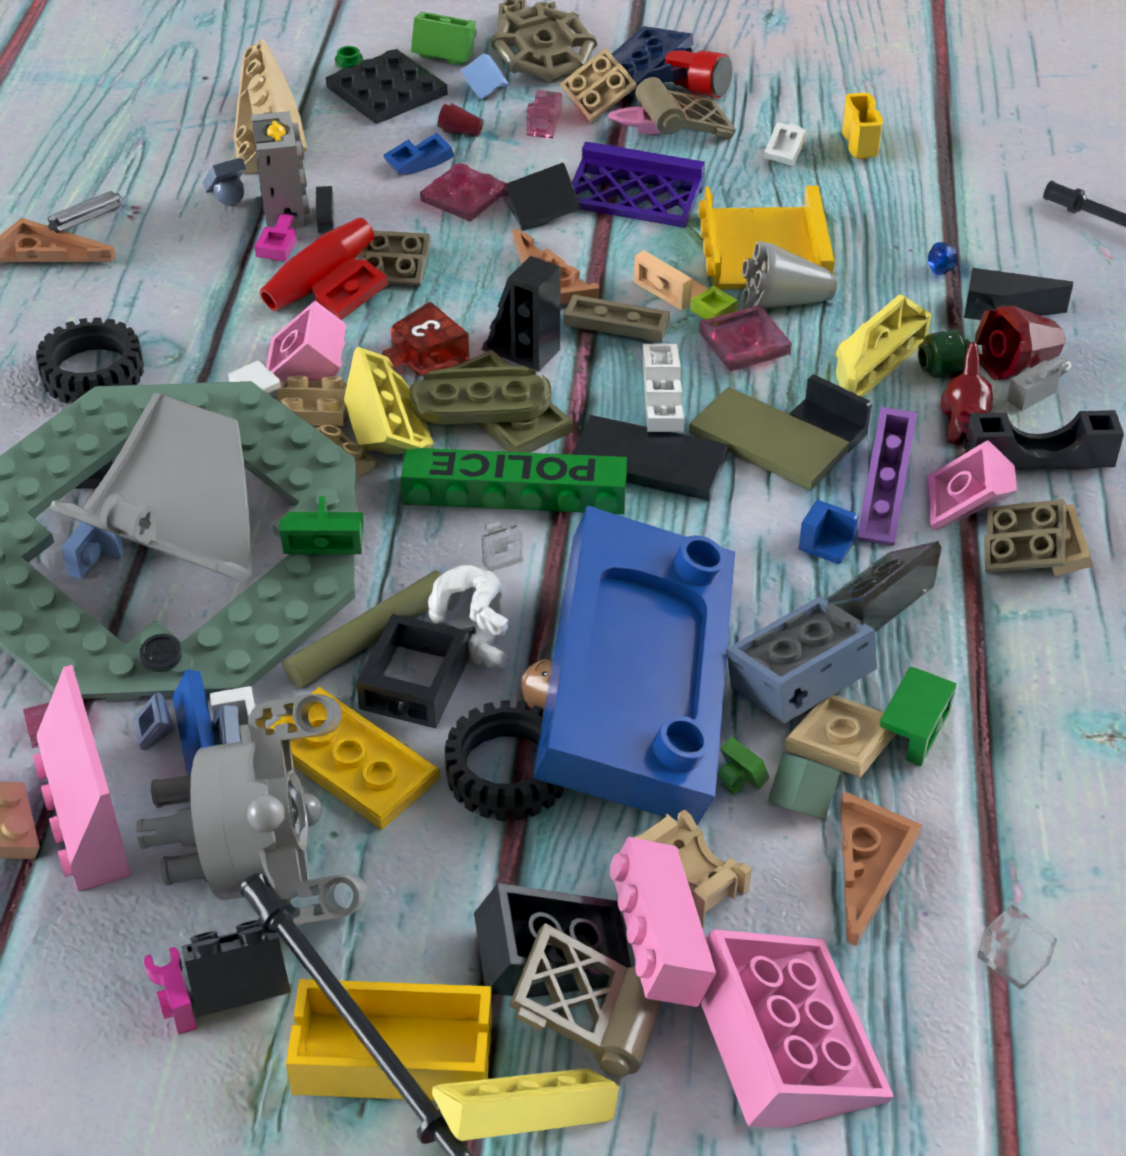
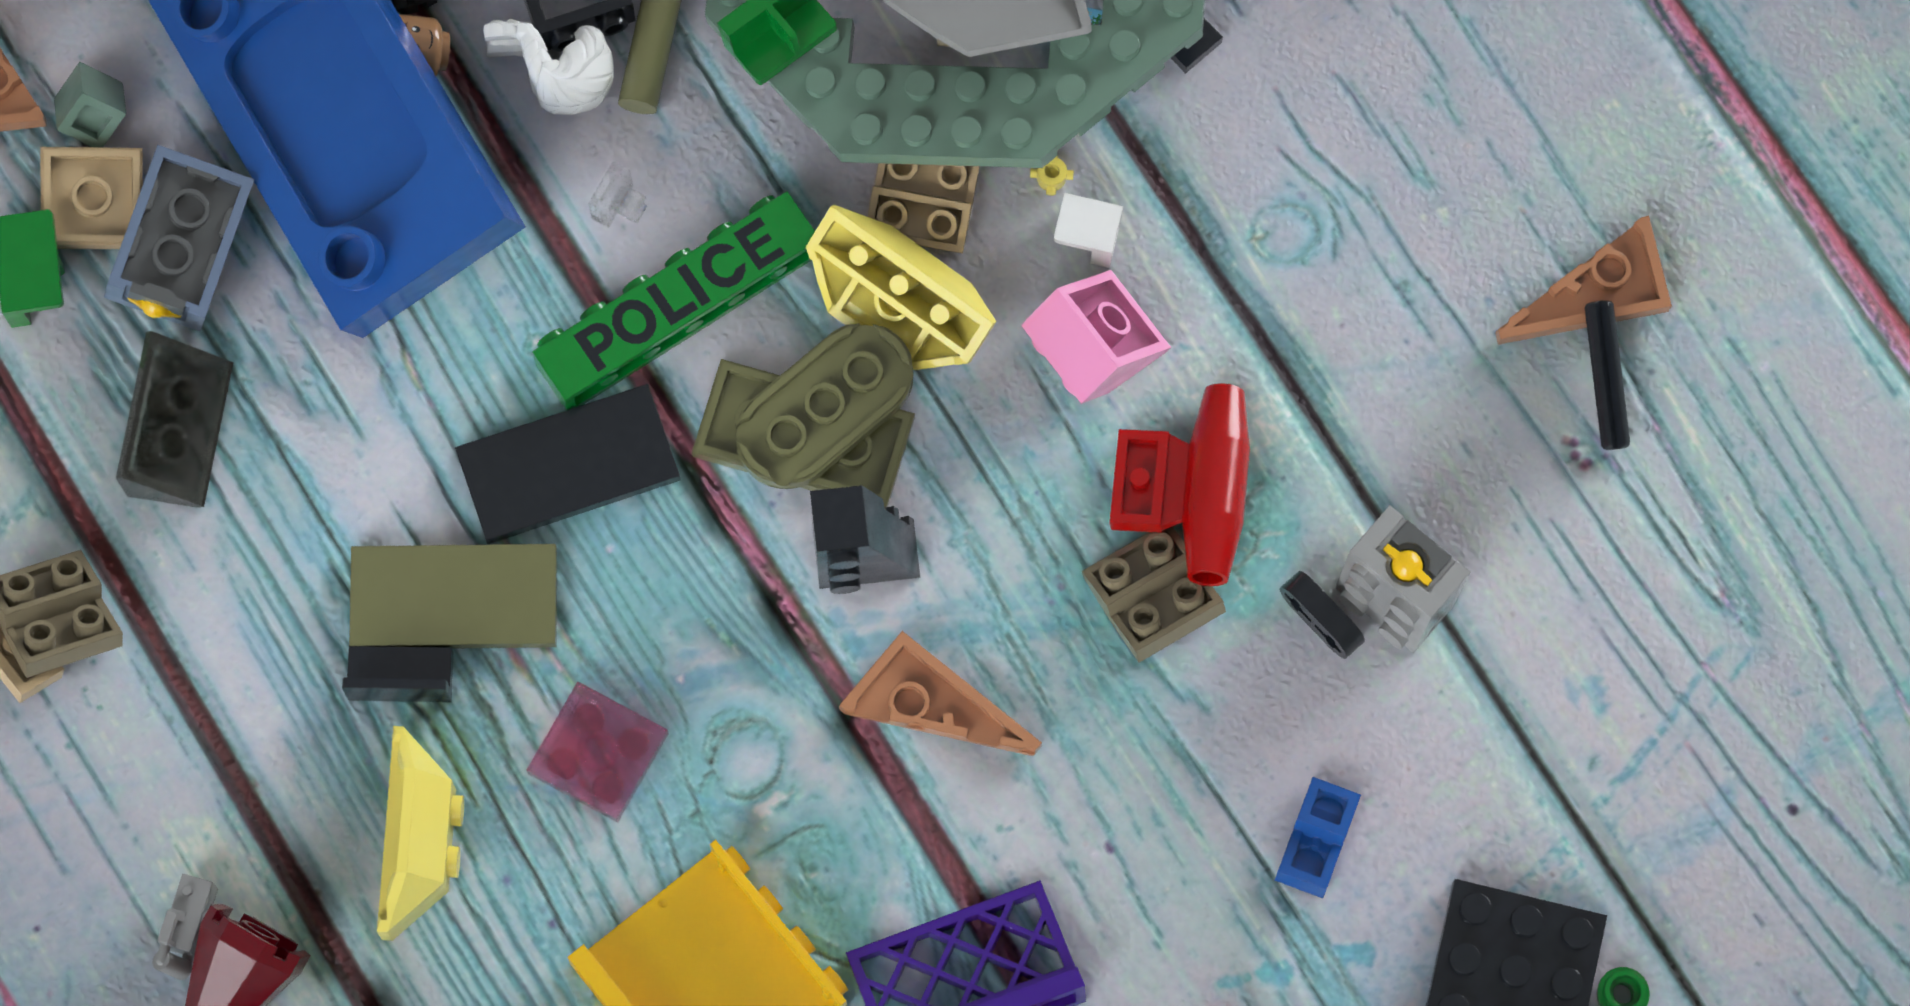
camera: 140 degrees right, 30 degrees up
(82, 338) = (1347, 90): black tyre -> none
(226, 182) = (1497, 562): sand blue tile -> none
(260, 92) = (1593, 754): tan wedge -> none
(278, 241) = (1323, 508): dark pink plate -> none
(315, 400) = (1013, 266): tan slope -> none
(427, 341) = (968, 454): clear red torso -> none
(459, 121) = (1324, 948): dark red cone -> none
(463, 192) = (1191, 804): clear pink tile -> none
(541, 196) = (1073, 851): black slope -> none
(617, 318) = (780, 674): dark tan plate -> none
(662, 388) = (633, 587): white slope -> none
(665, 281) = (773, 806): light nougat panel -> none
(713, 303) = (679, 788): lime plate -> none
(740, 767) = (162, 86): bright green tile -> none
(784, 279) = (611, 883): light grey cone -> none
(828, 532) = (281, 473): blue panel -> none
(887, 476) = (266, 608): medium lavender slope -> none
(943, 353) = (329, 892): dark green head -> none
(966, 395) = (244, 814): dark red animal -> none
(969, 484) = (156, 652): bright pink slope -> none
(1085, 442) = (150, 763): black arch -> none

